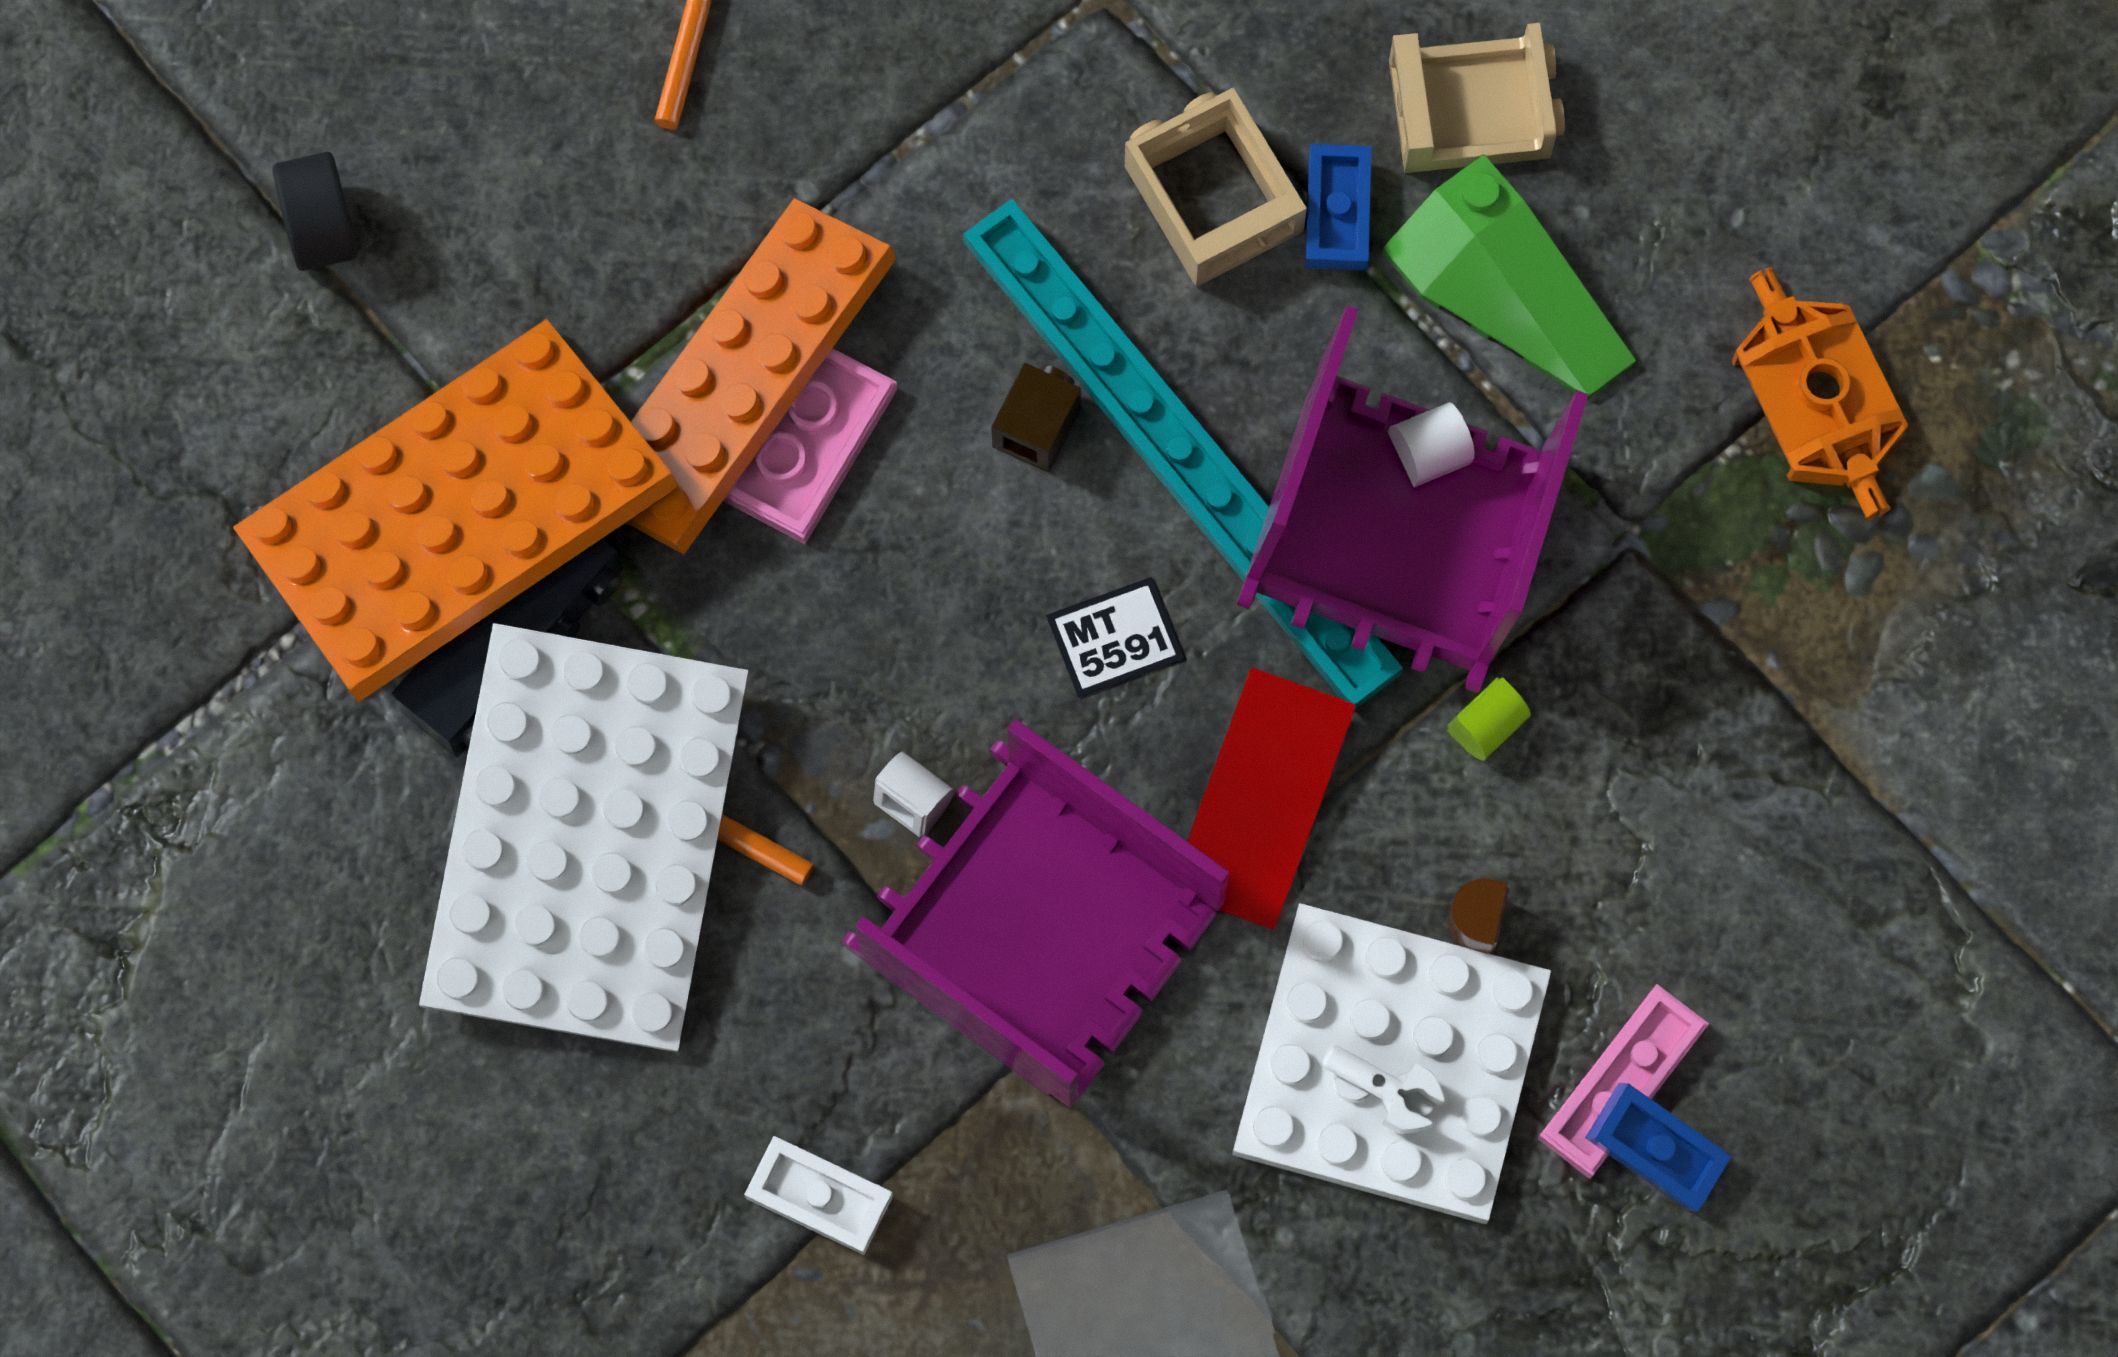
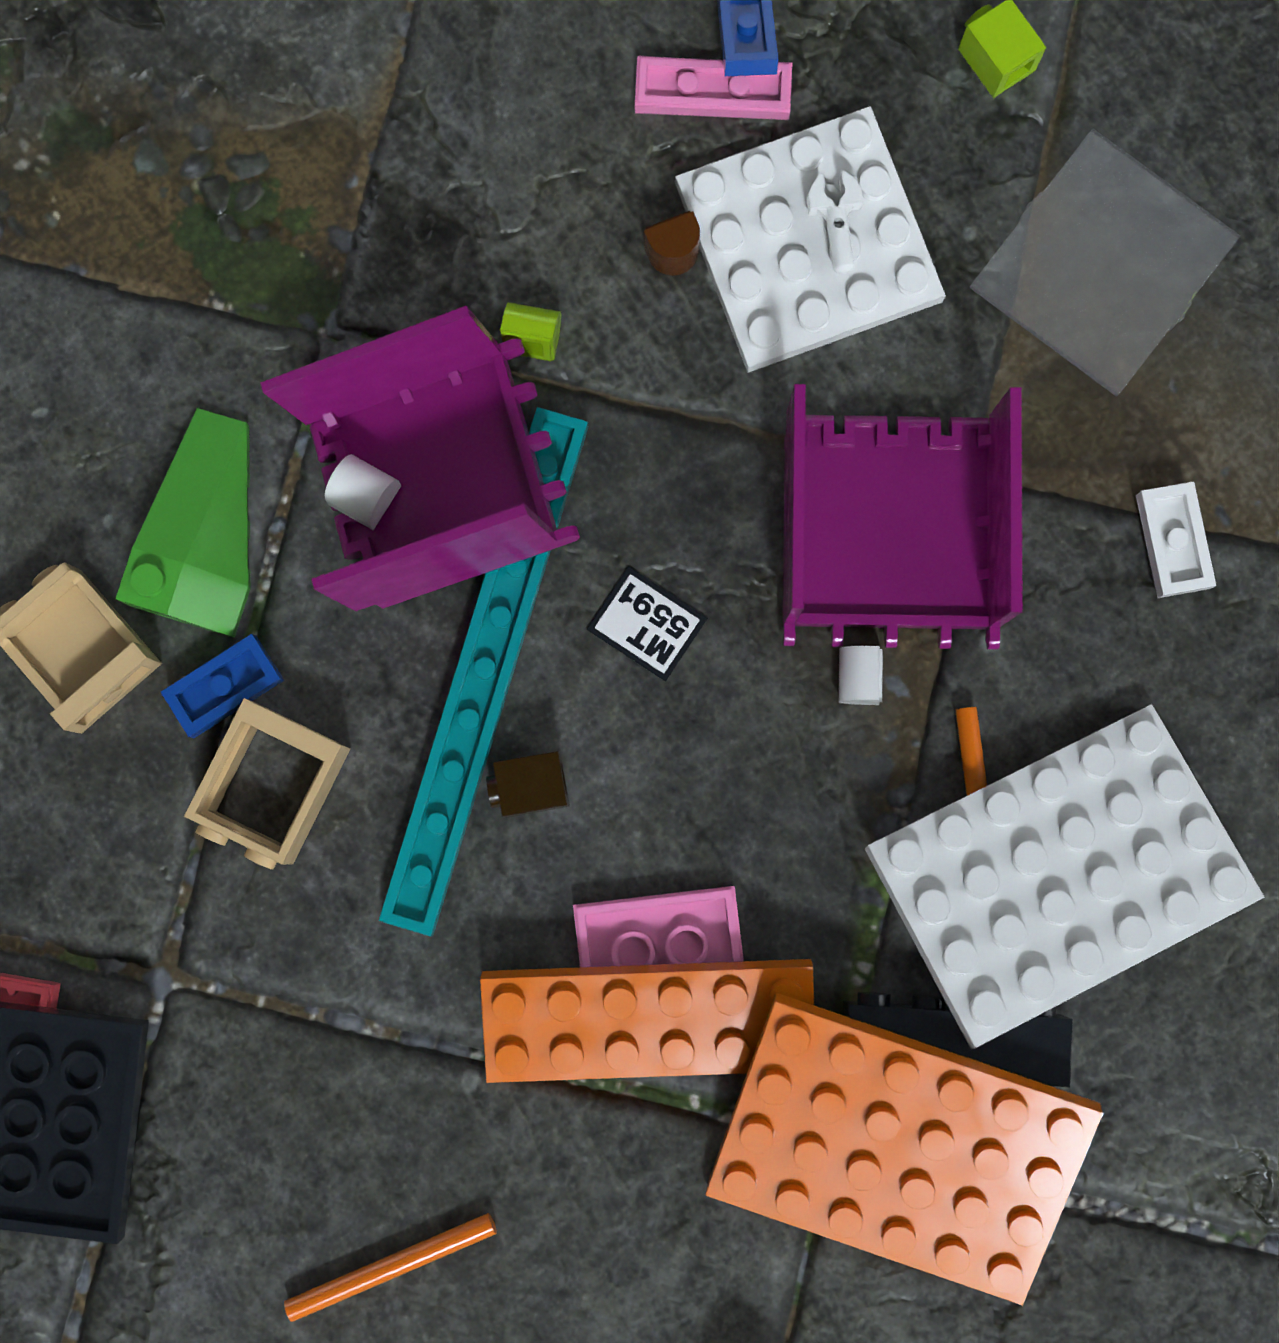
camera: 120 degrees left, 10 degrees up
(1268, 790) = (689, 442): red sticker -> none
(1821, 438) = (128, 308): orange plate -> none

